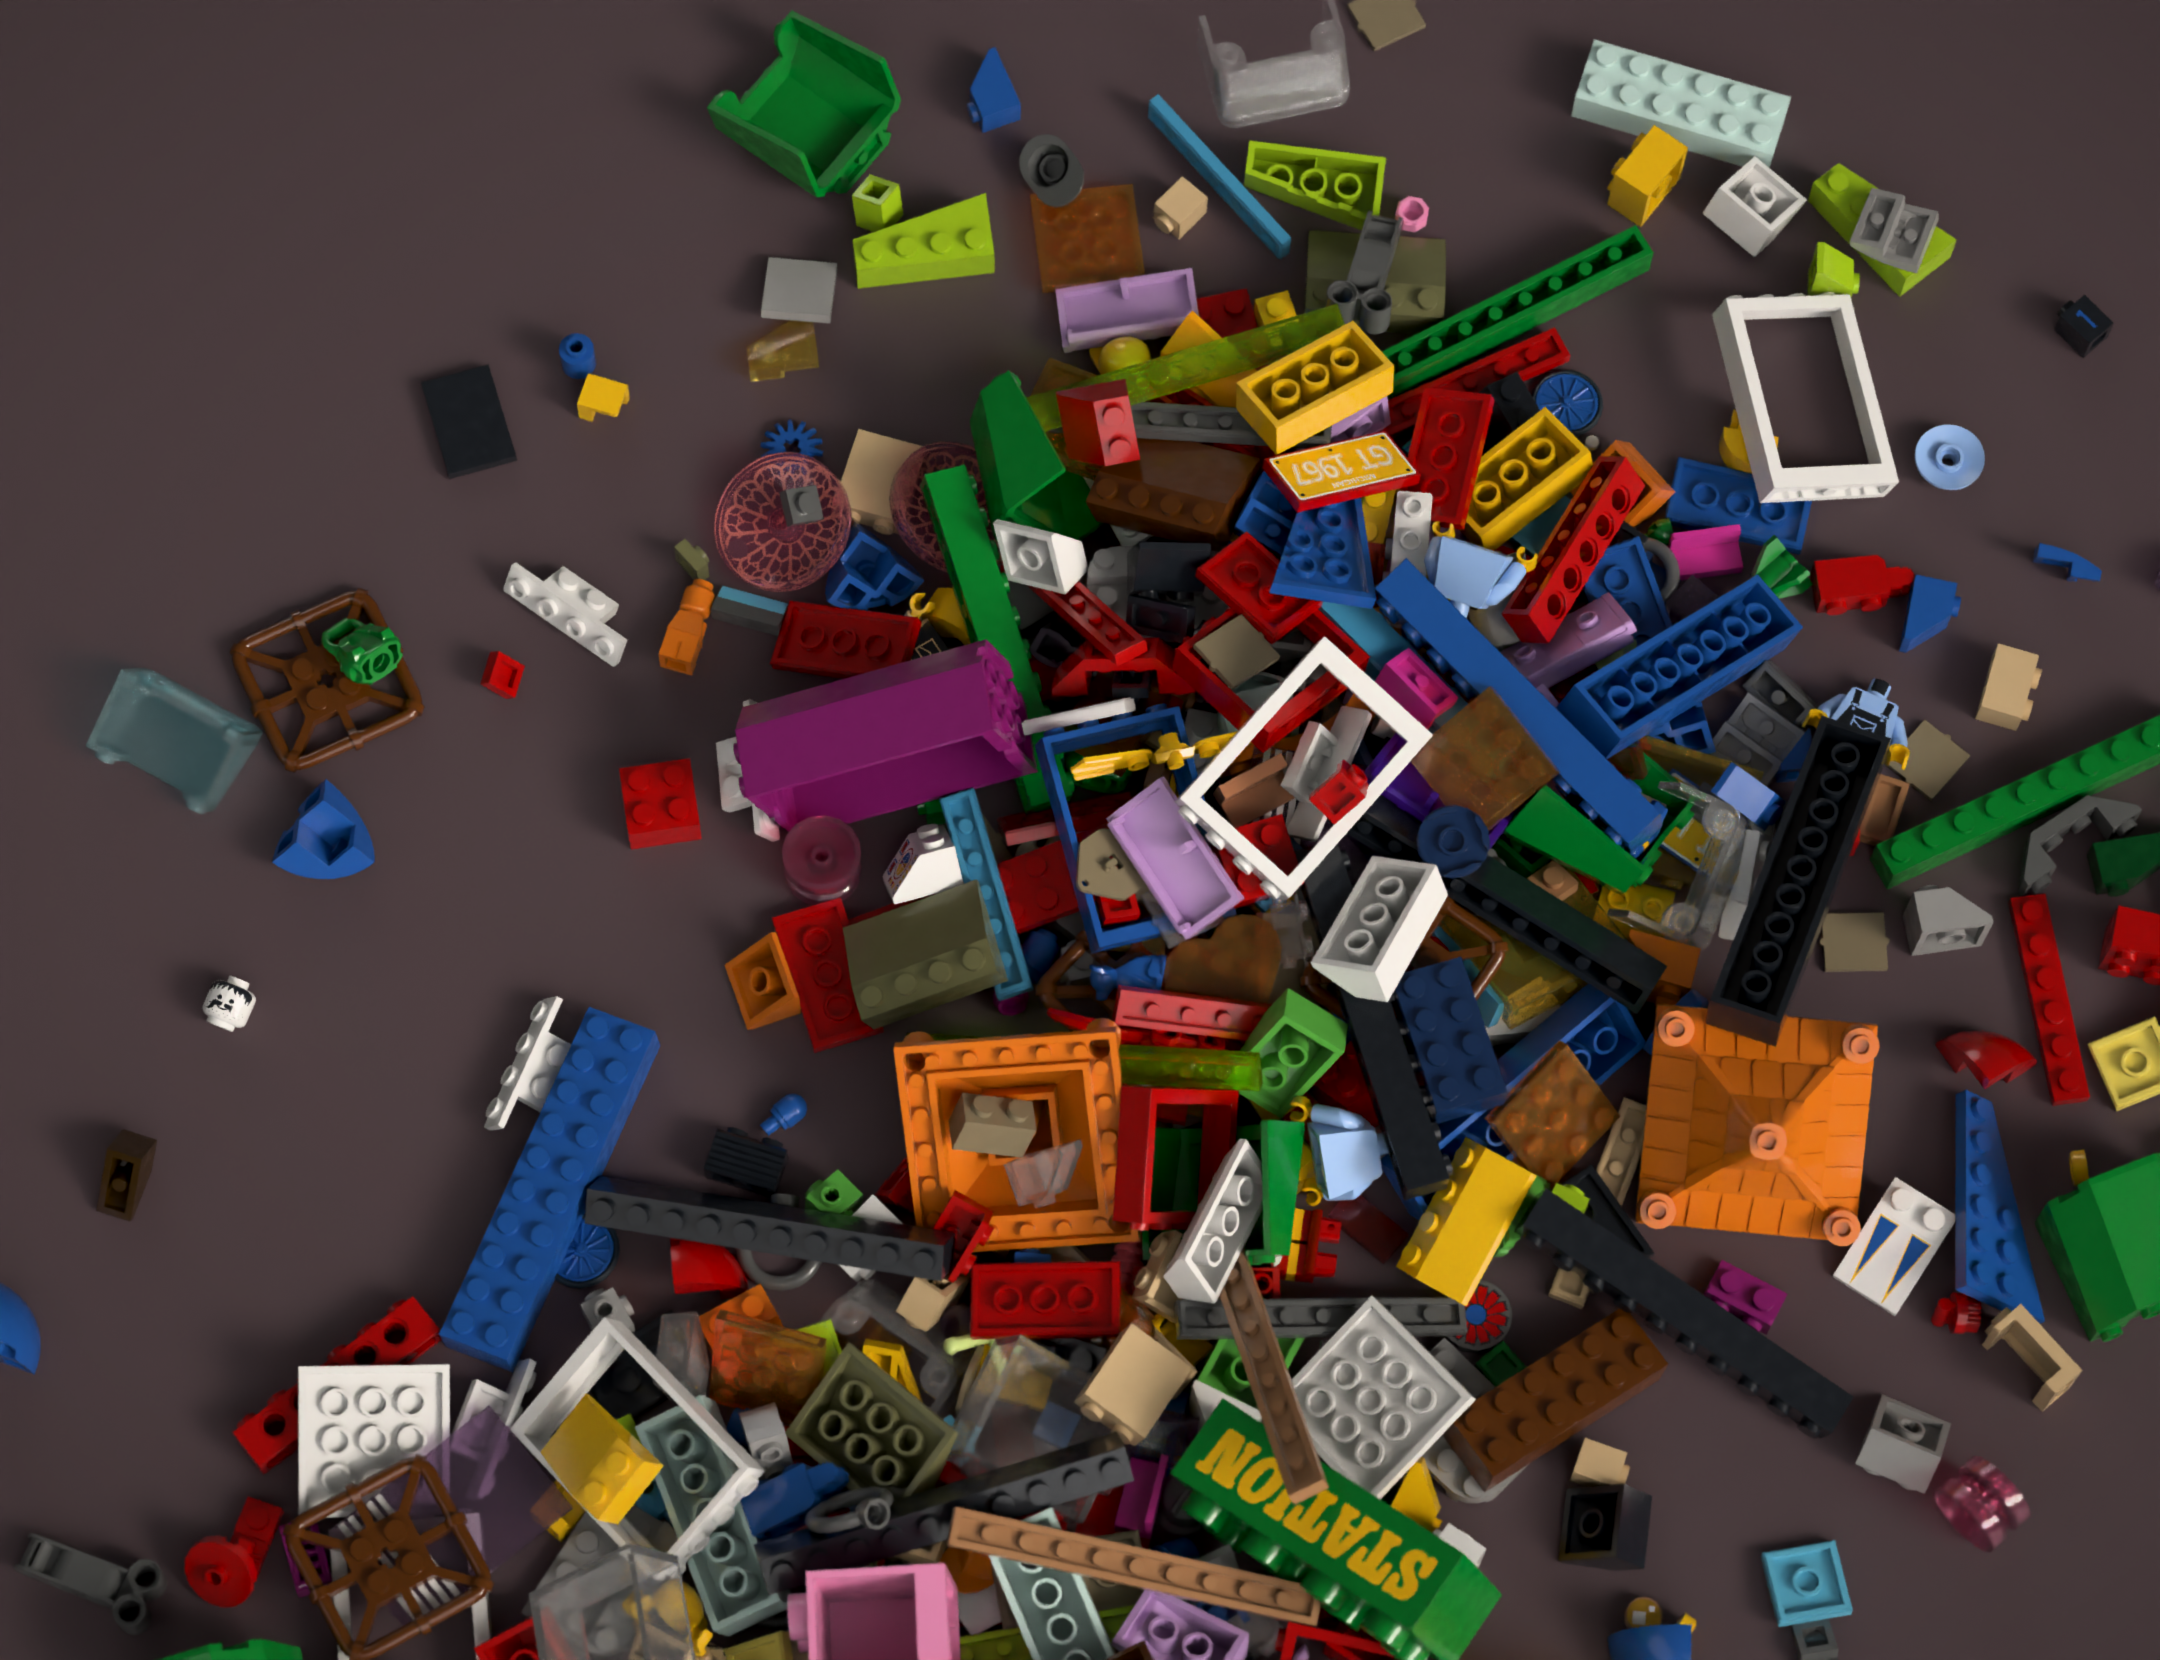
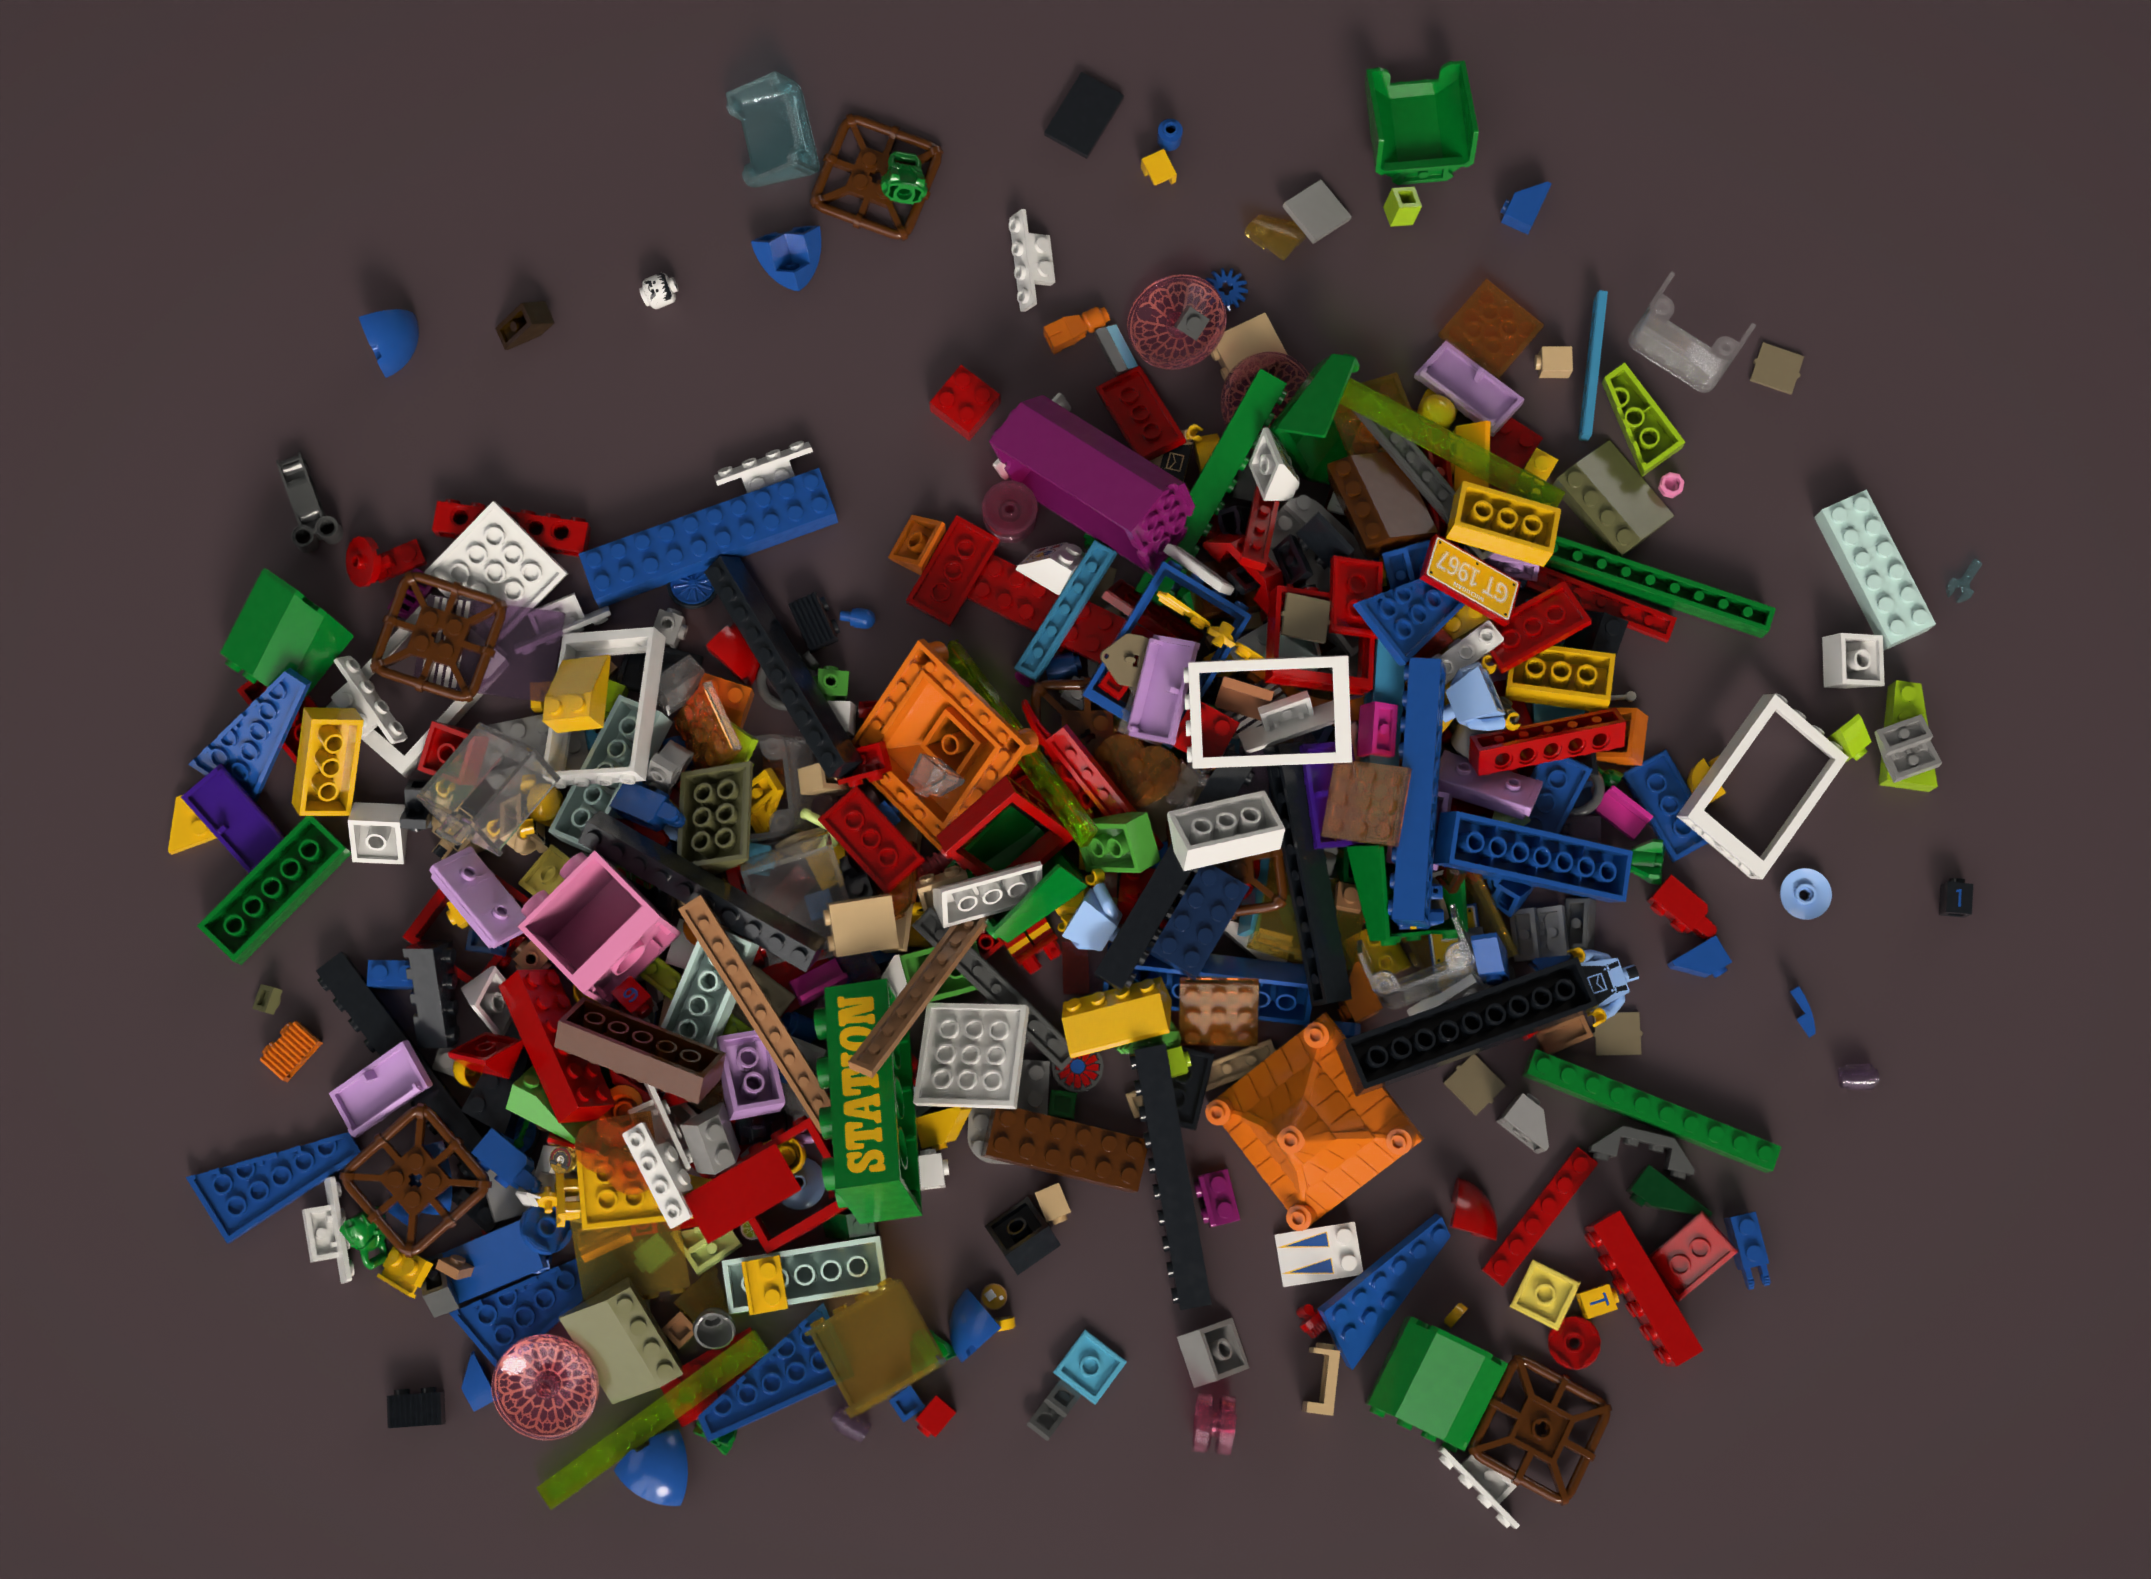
camera: 45 degrees right, 10 degrees up
(502, 674) = (960, 260): red plate -> none
(692, 560) = (1115, 296): olive plate -> none
(870, 574) = (1192, 391): blue brick -> none
(876, 1498) = (669, 856): dark grey piece -> none
(923, 955) = (1001, 608): olive slope -> none
(928, 247) = (1405, 254): lime wedge -> none
(992, 1125) = (931, 728): dark tan brick -> none
(1051, 170) = (1509, 276): dark grey piece -> none
(1098, 423) = (1376, 431): red slope -> none
(1138, 972) = (1088, 726): blue animal -> none
(1340, 791) = (1272, 742): red bracket -> none
(1363, 293) = (1604, 493): dark grey piece -> none
(1453, 841) = (1308, 825): dark blue tile -> none
(1571, 399) = (1640, 663): blue wheel -> none
(1646, 175) = (1813, 587): yellow brick -> none
(1769, 39) = (1964, 582): none -> clear light blue bar
(2008, 686) = (1699, 1040): tan brick -> none

